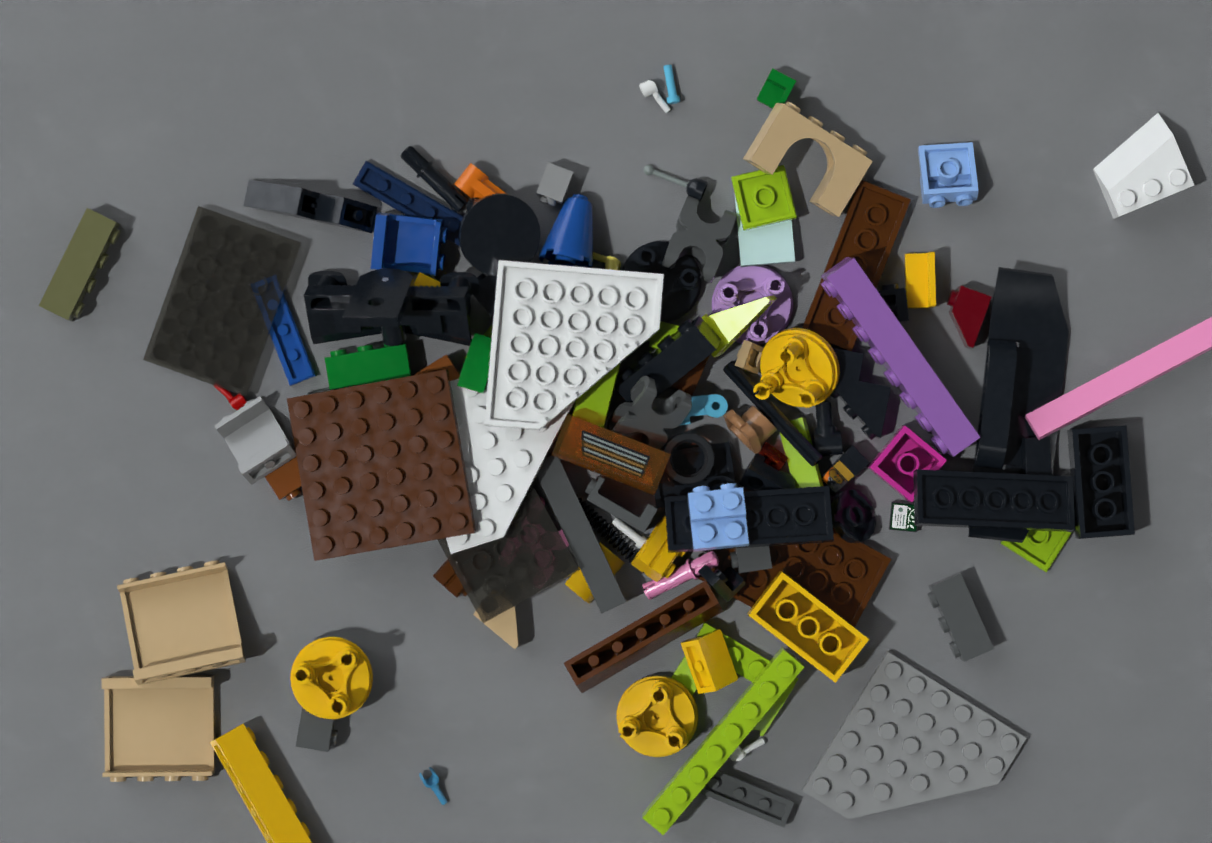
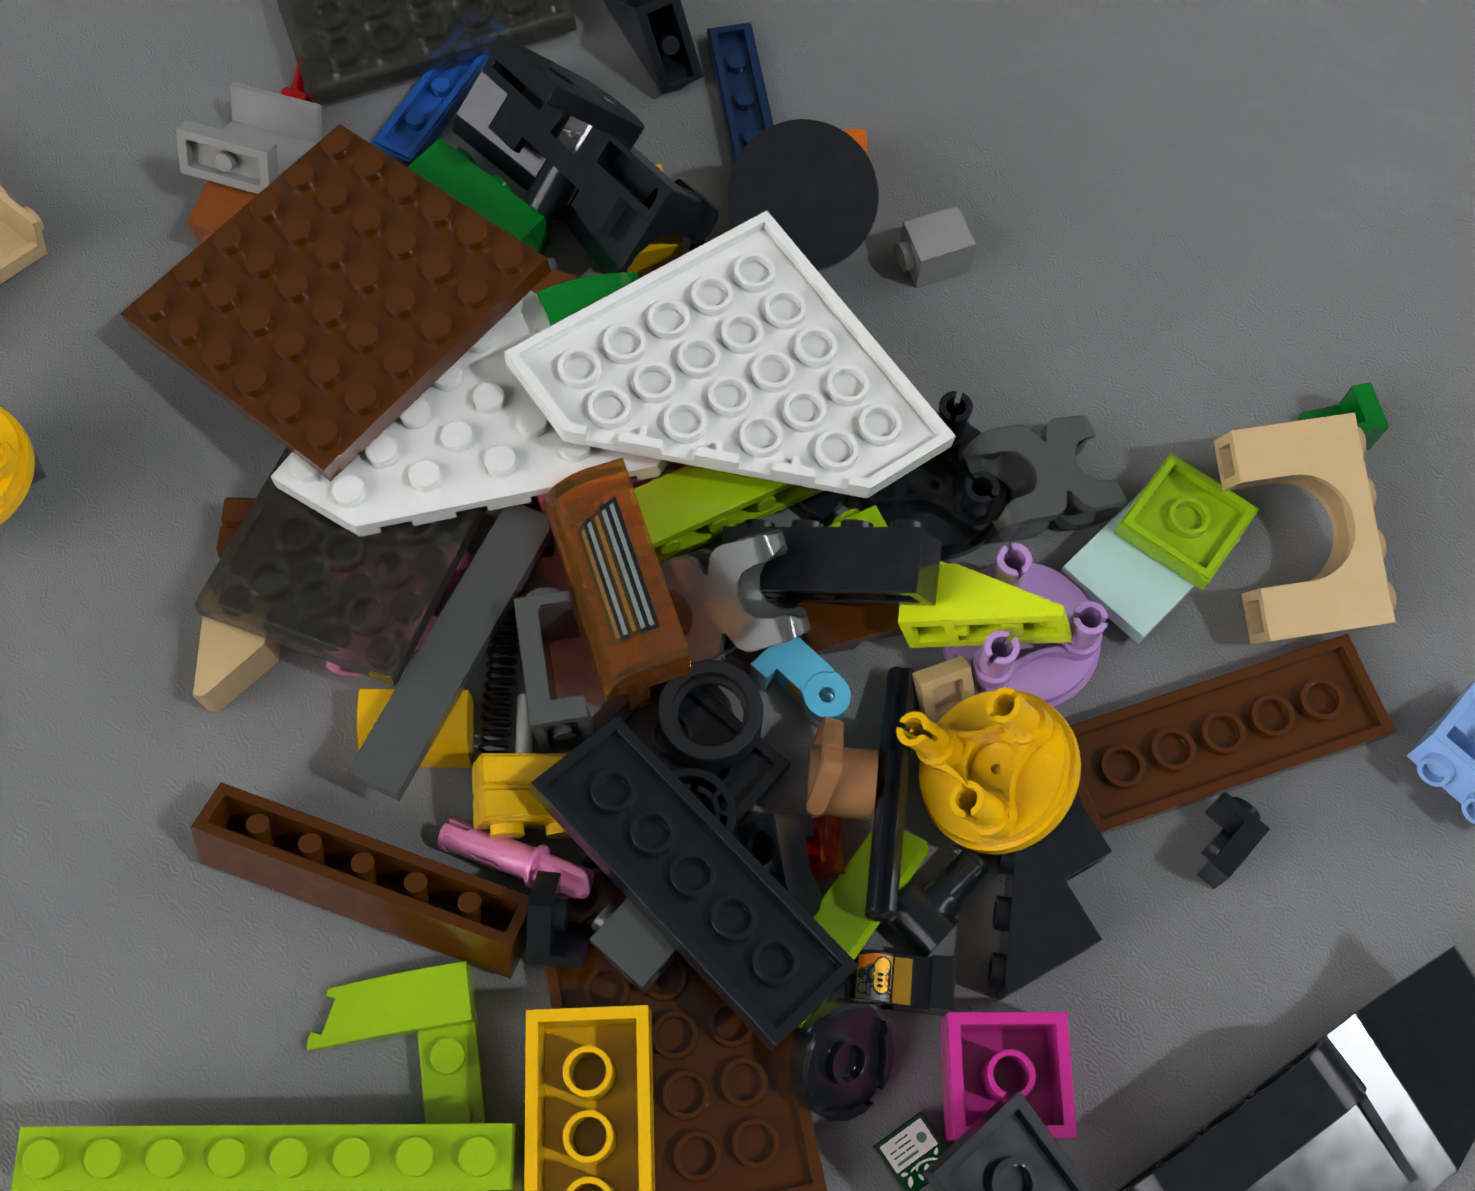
camera: 55 degrees right, 20 degrees down
(408, 243) = (687, 127): blue panel -> none
(434, 178) = (803, 88): black axle -> none
(571, 235) = (897, 304): blue cone -> none
(649, 88) = (1172, 268): white hand -> none
(657, 716) = (245, 1016): yellow piece -> none
(671, 88) = (1192, 307): medium azure piece -> none
(694, 188) = (1107, 424): hinge -> none
(709, 662) = (402, 1023): yellow panel -> none
(718, 517) = (650, 817): light blue plate -> none
(900, 357) = (1164, 912): medium lavender brick -> none
(920, 280) = (1296, 853): yellow panel -> none
(968, 313) = (1325, 969): dark red slope -> none

